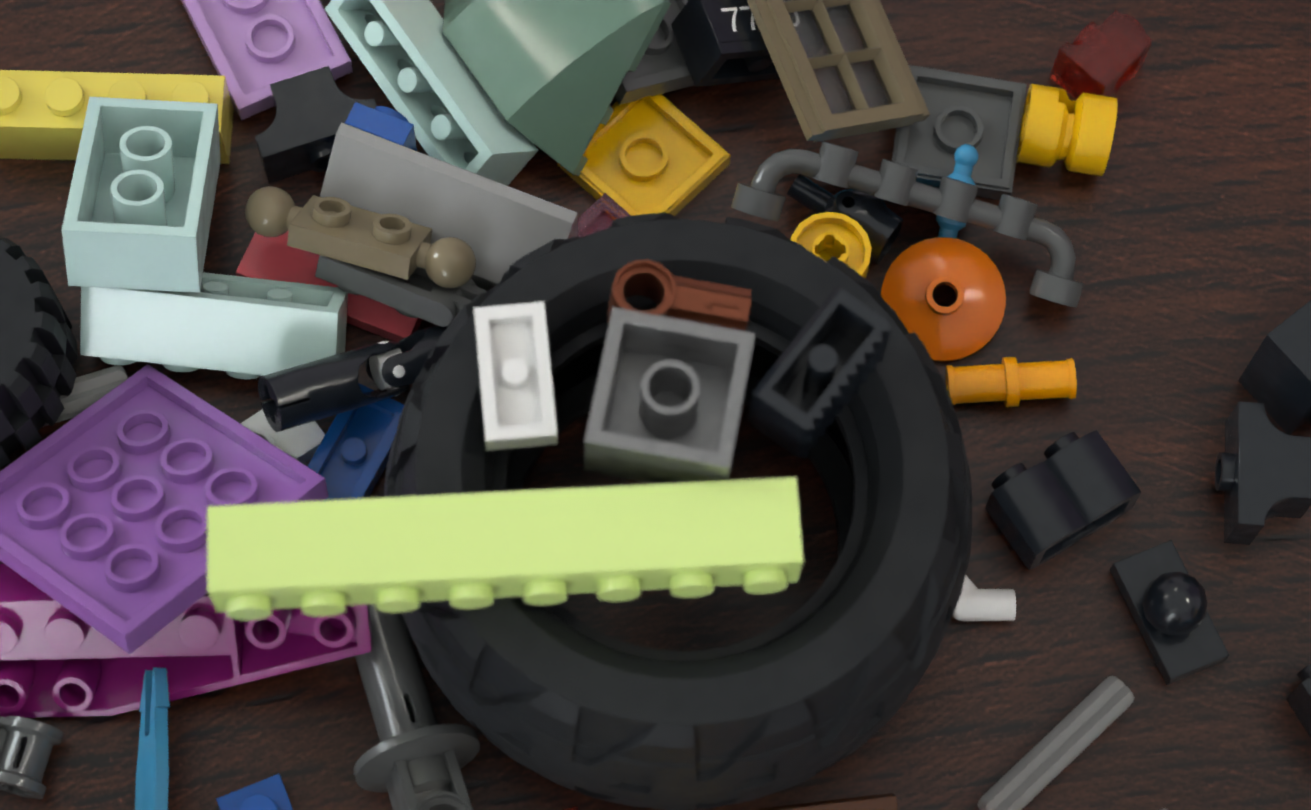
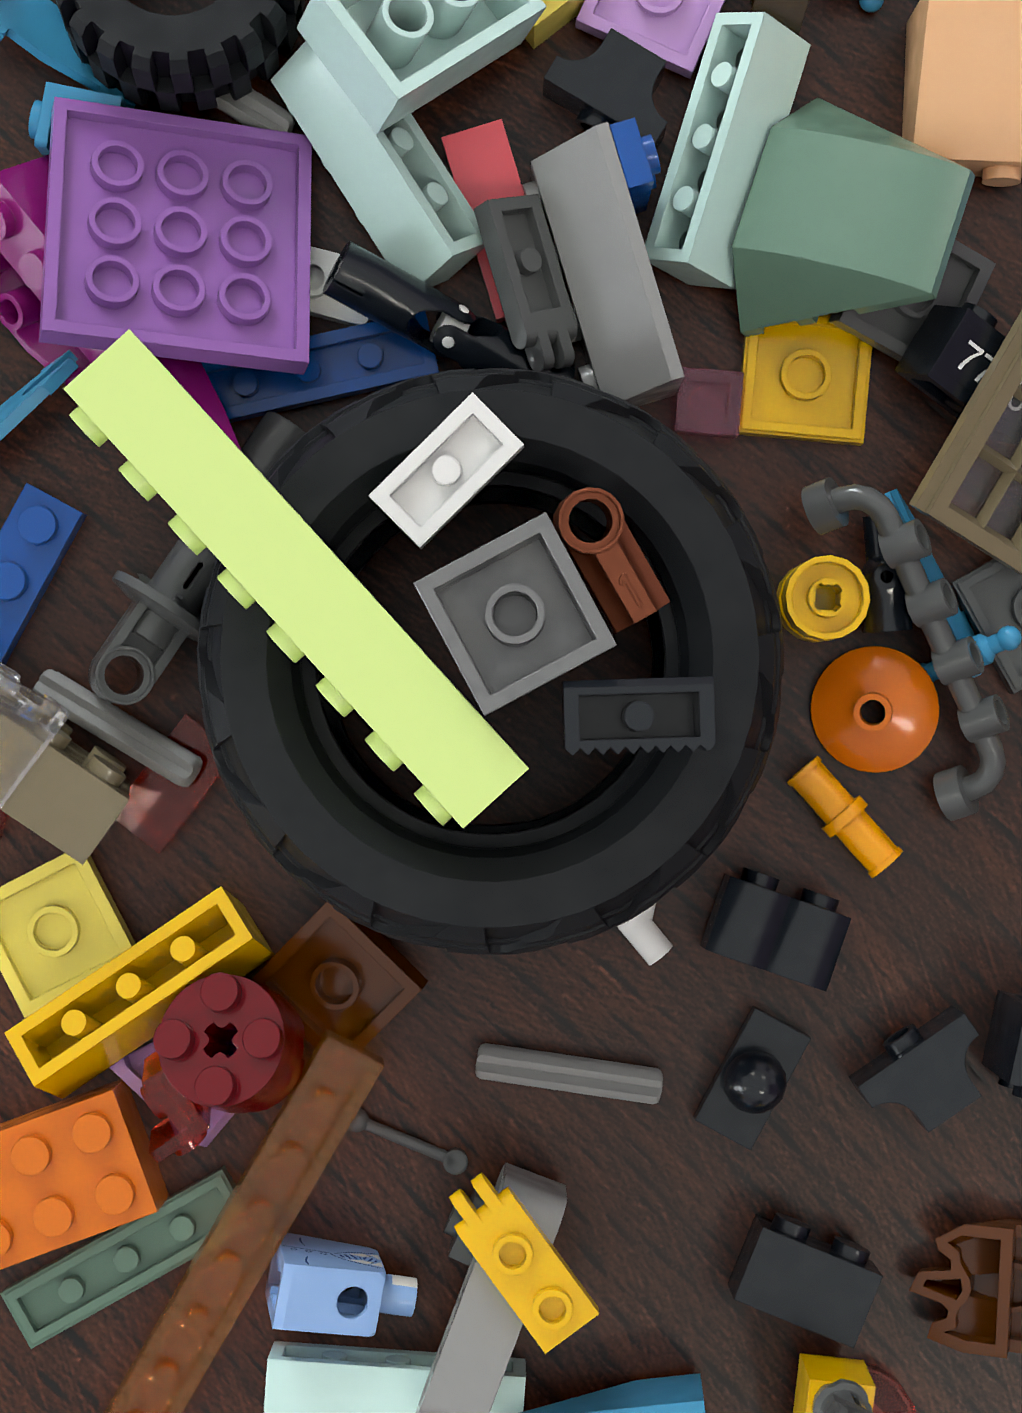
camera: 50 degrees right, 20 degrees up
(360, 236) = (531, 217): dark tan plate -> none

